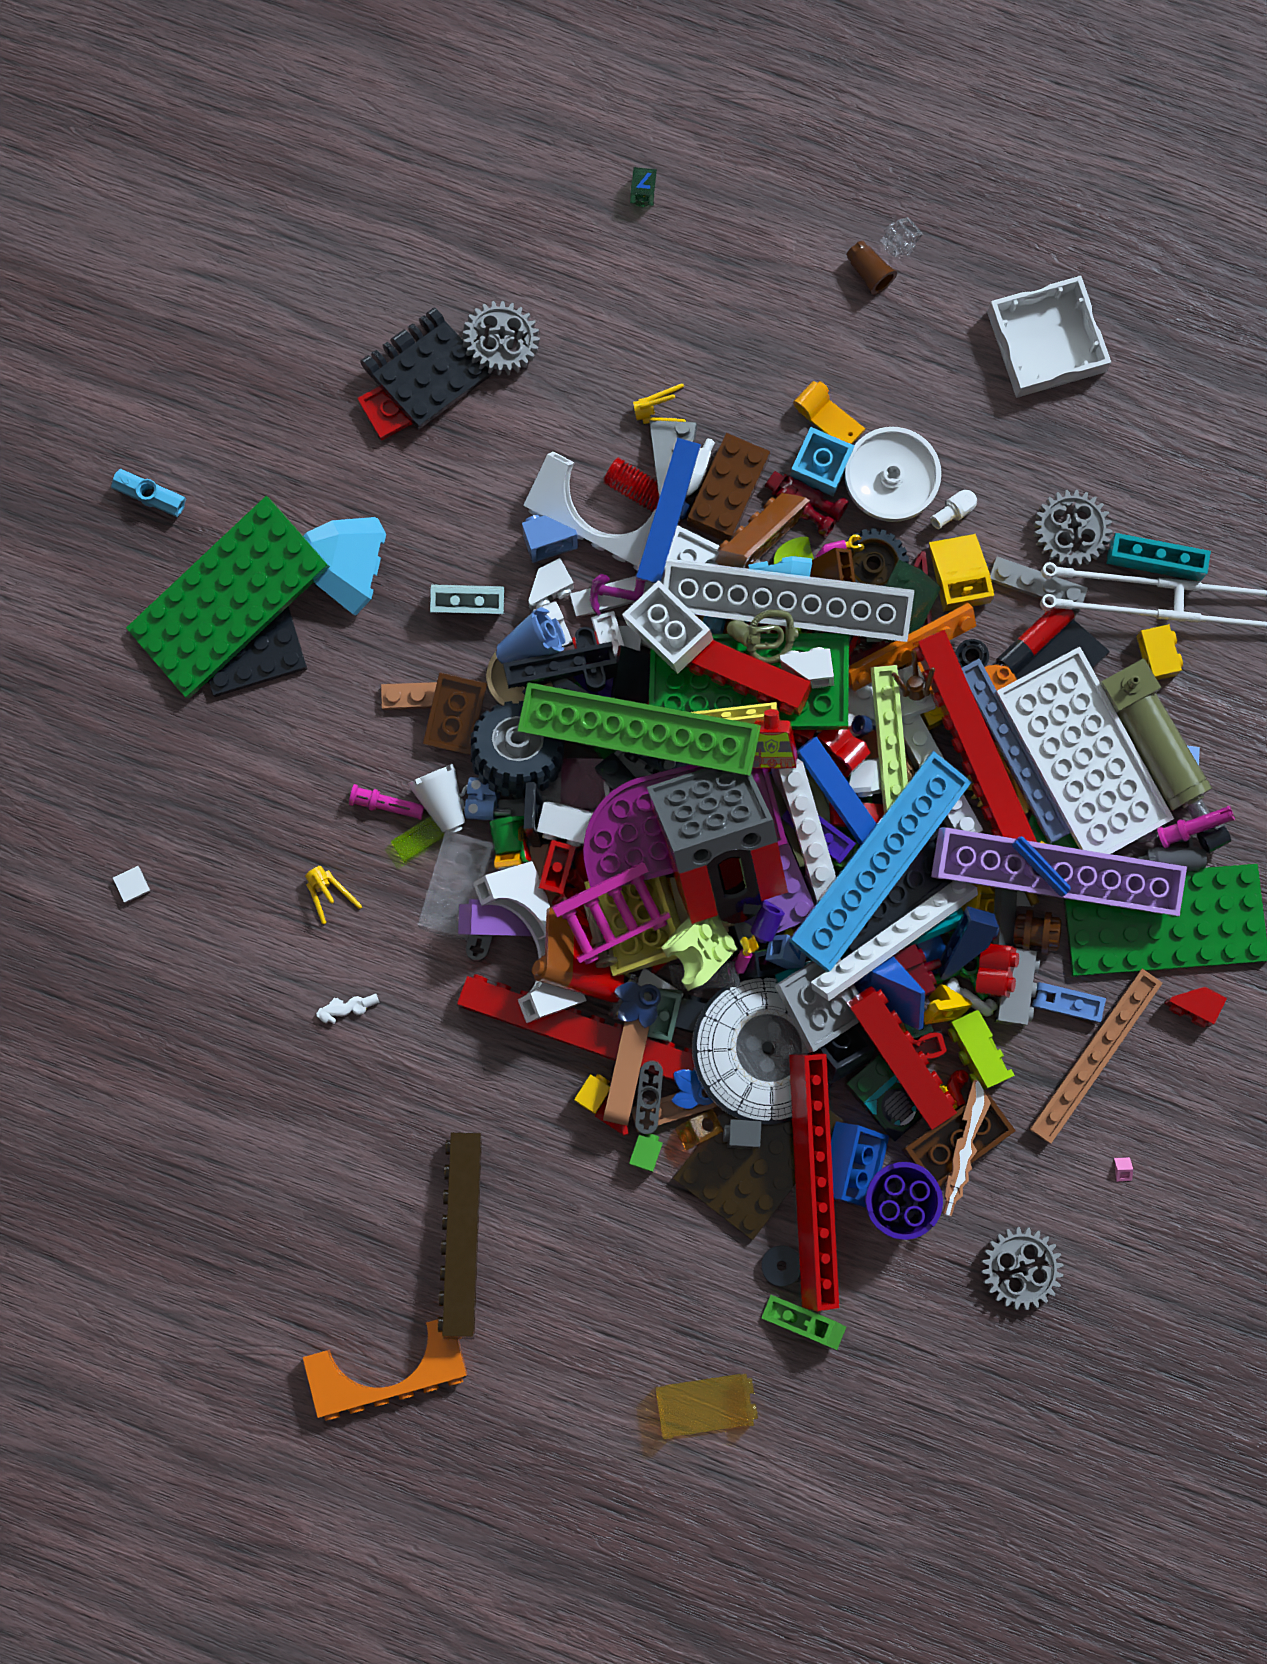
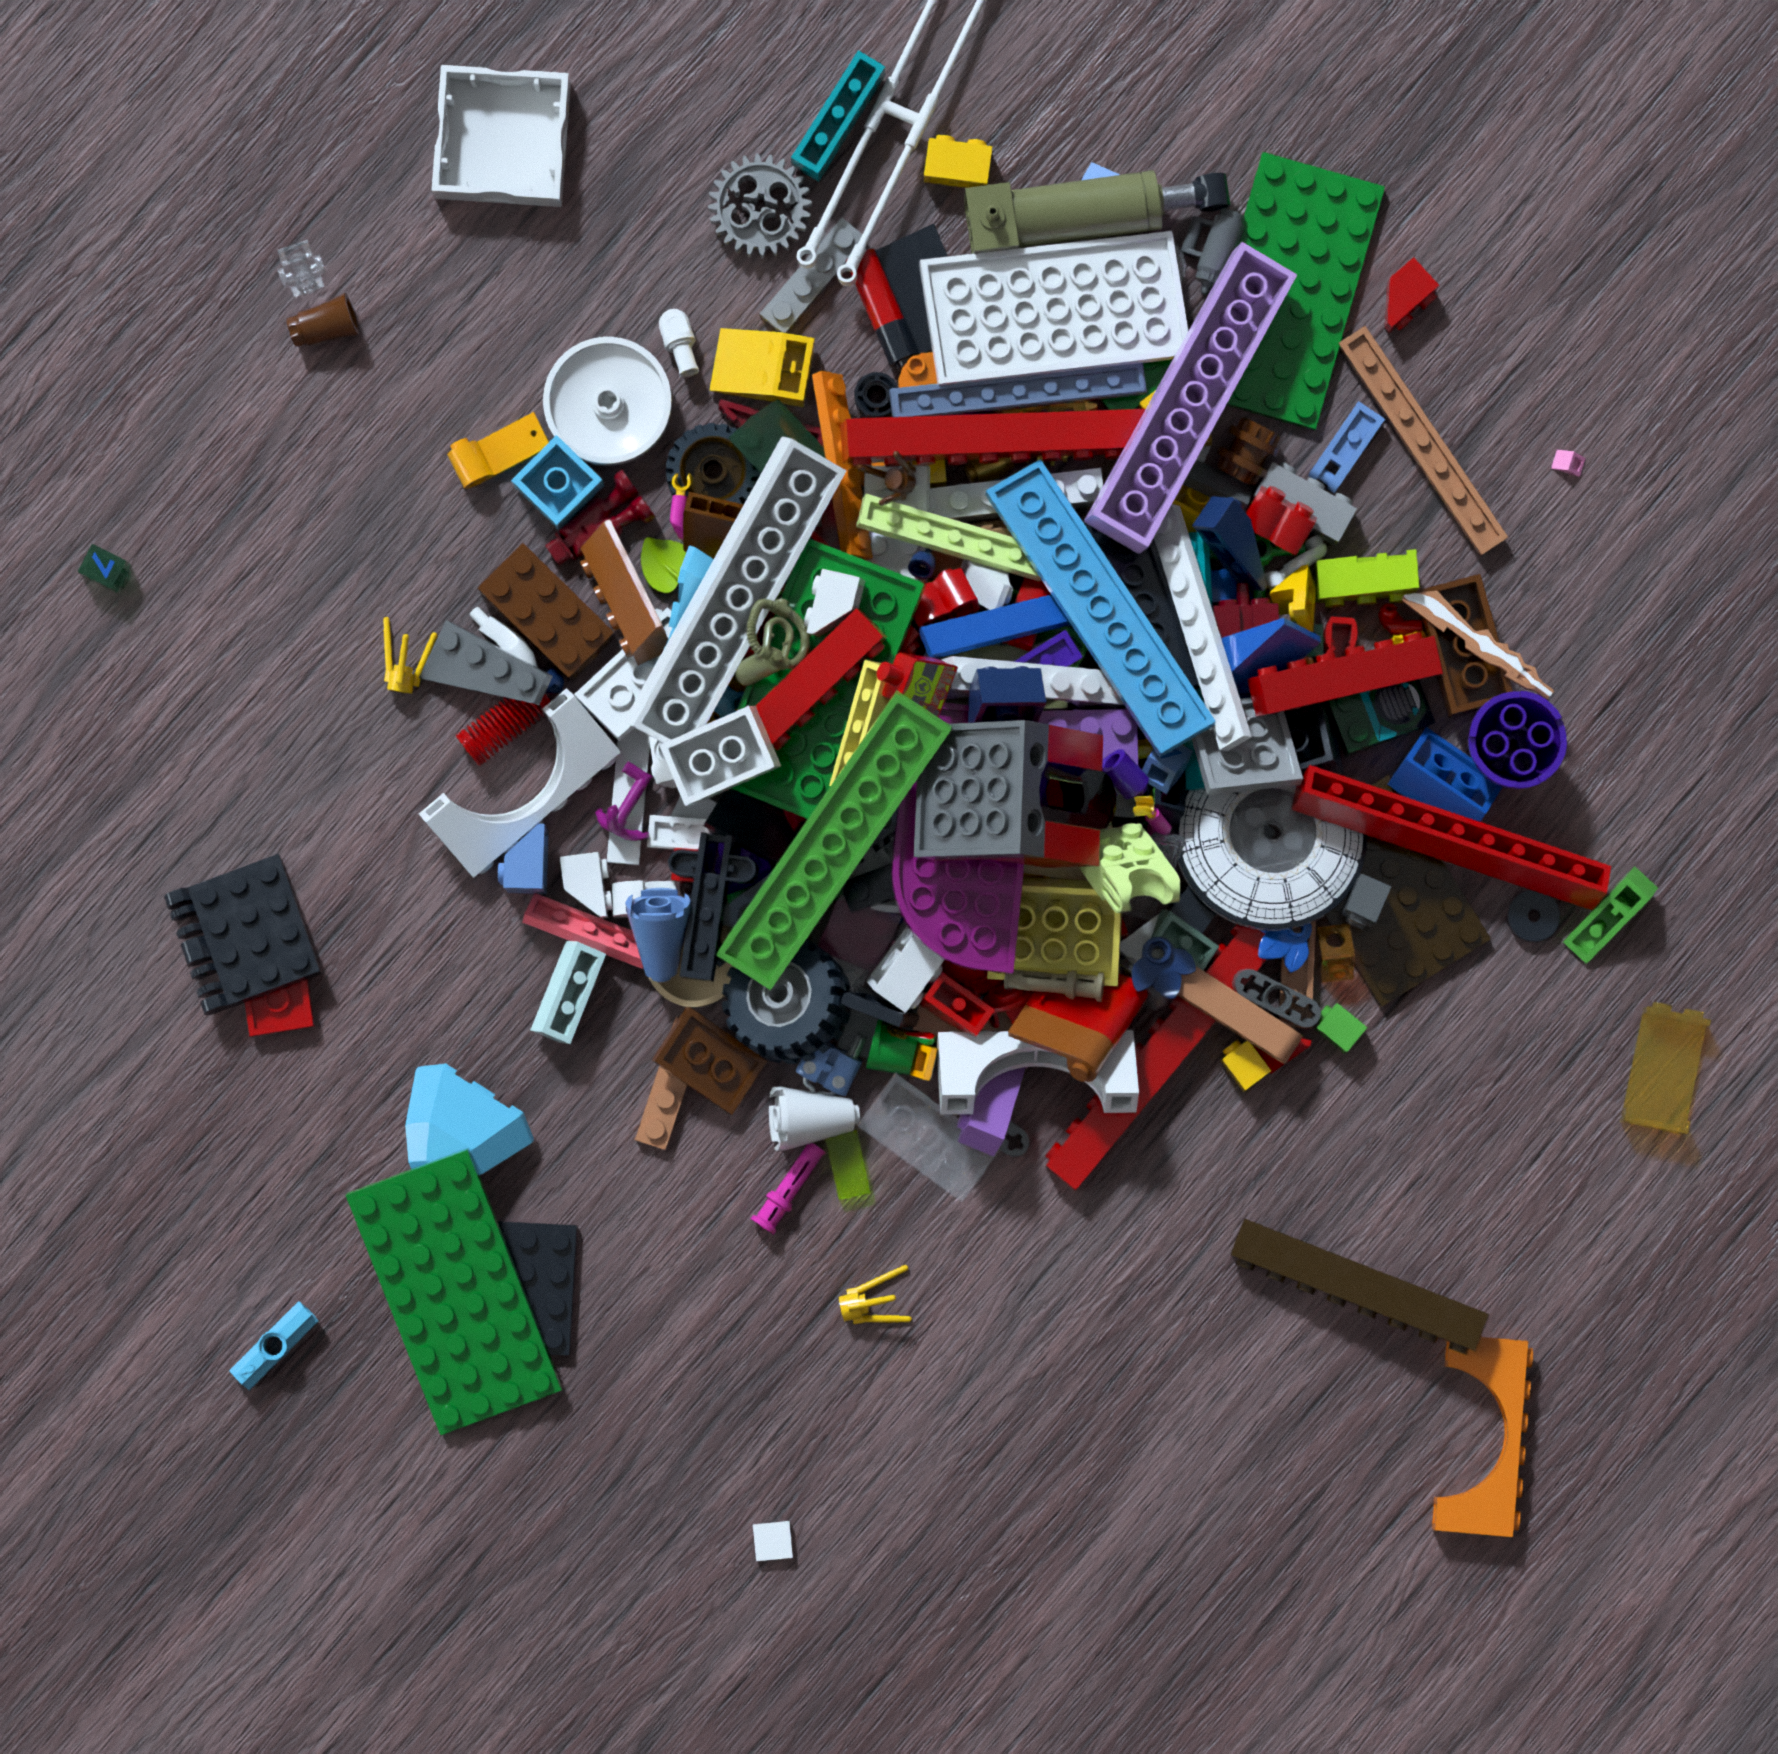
camera: 65 degrees left, 5 degrees up
(337, 1008) = (1023, 1339): white animal -> none
(501, 319) = (212, 816): light grey gear -> none
(515, 589) = (583, 928): none -> coral plate
(613, 888) = (1017, 944): dark pink fence -> none
(668, 511) = (559, 698): blue tile -> none
(790, 810) = (1006, 694): none -> dark blue slope
(949, 753) = (987, 472): none -> pearl gold brick
(1029, 1290) = (1671, 632): light grey gear -> none
(1041, 866) = (1180, 417): blue axle -> none
(1184, 830) = (1192, 225): dark pink pin -> none

